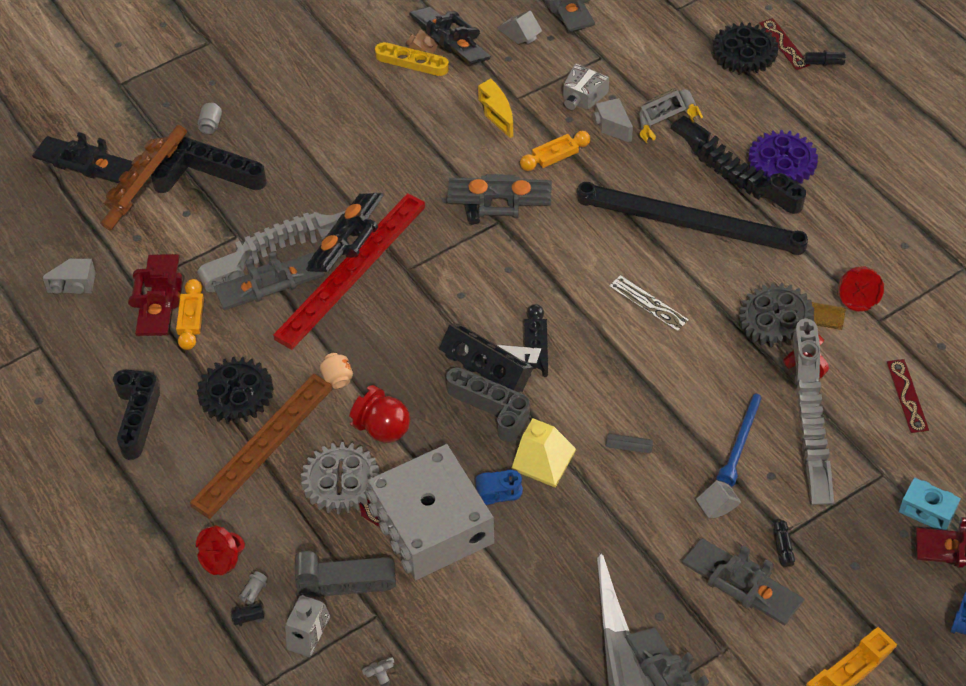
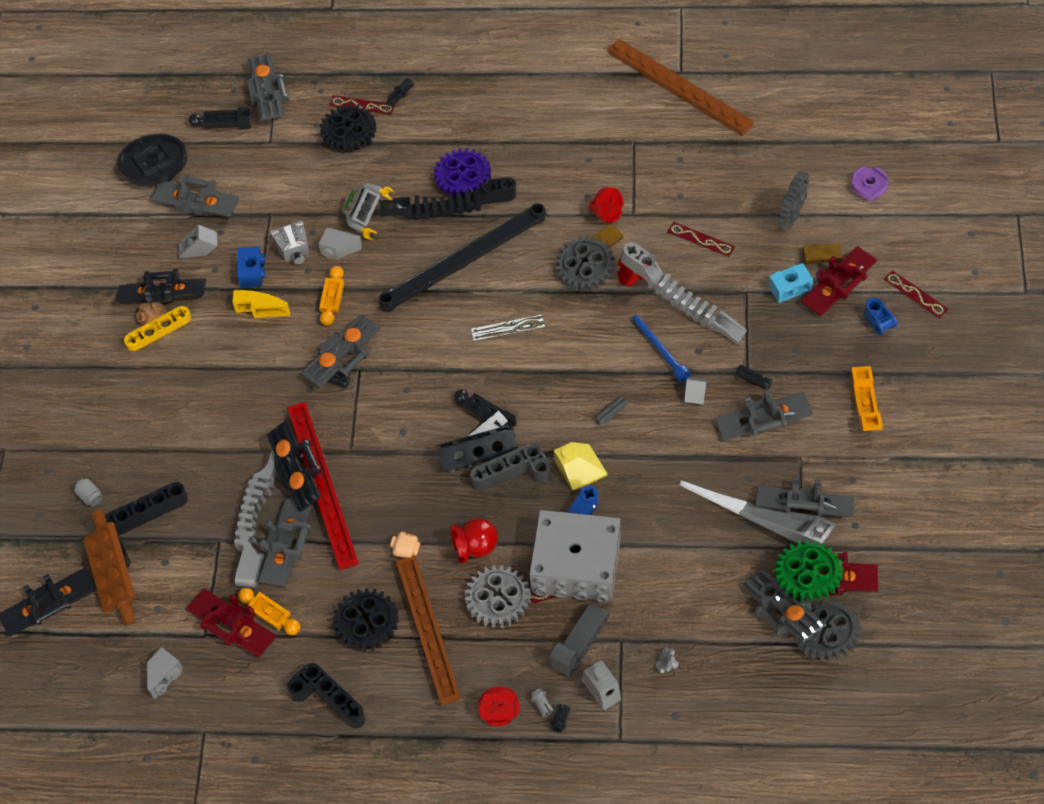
camera: 50 degrees left, 5 degrees up
(529, 76) = (250, 266): none -> blue brick

